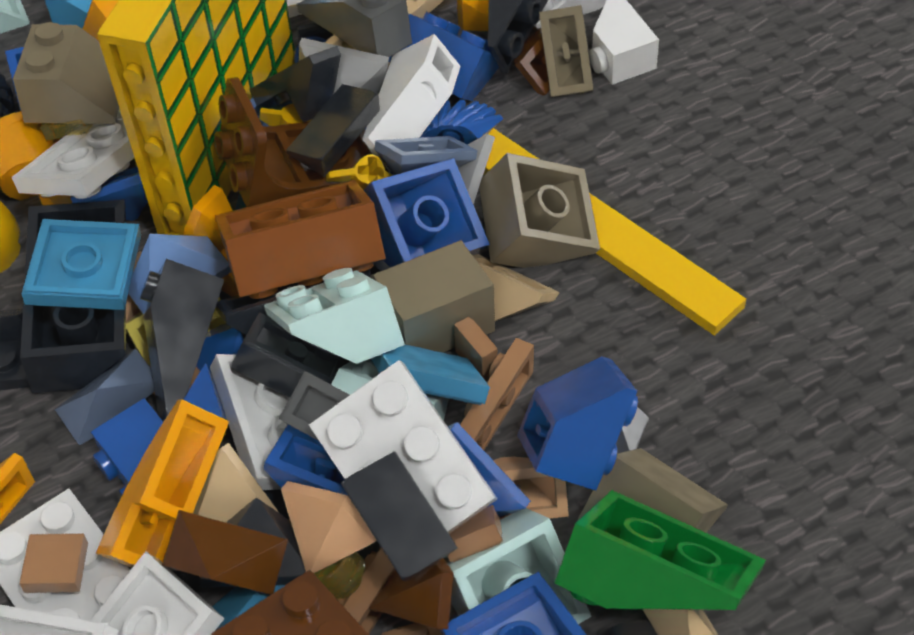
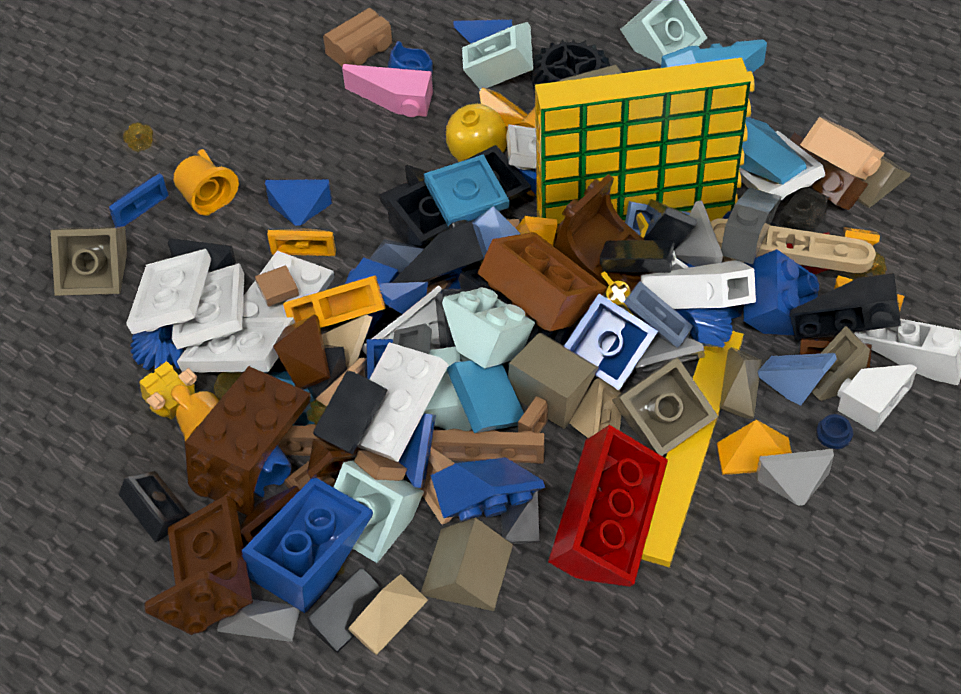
camera: 65 degrees right, 0 degrees up
(537, 136) = (740, 383): none -> dark tan slope
(558, 86) = (796, 374): none -> medium blue slope
(632, 171) = (743, 448): none -> light orange slope
(644, 93) = (834, 431): none -> dark blue plate
(648, 560) = (405, 564): green slope -> none
(649, 326) = (609, 509): none -> red slope
(687, 146) = (795, 474): none -> light grey slope

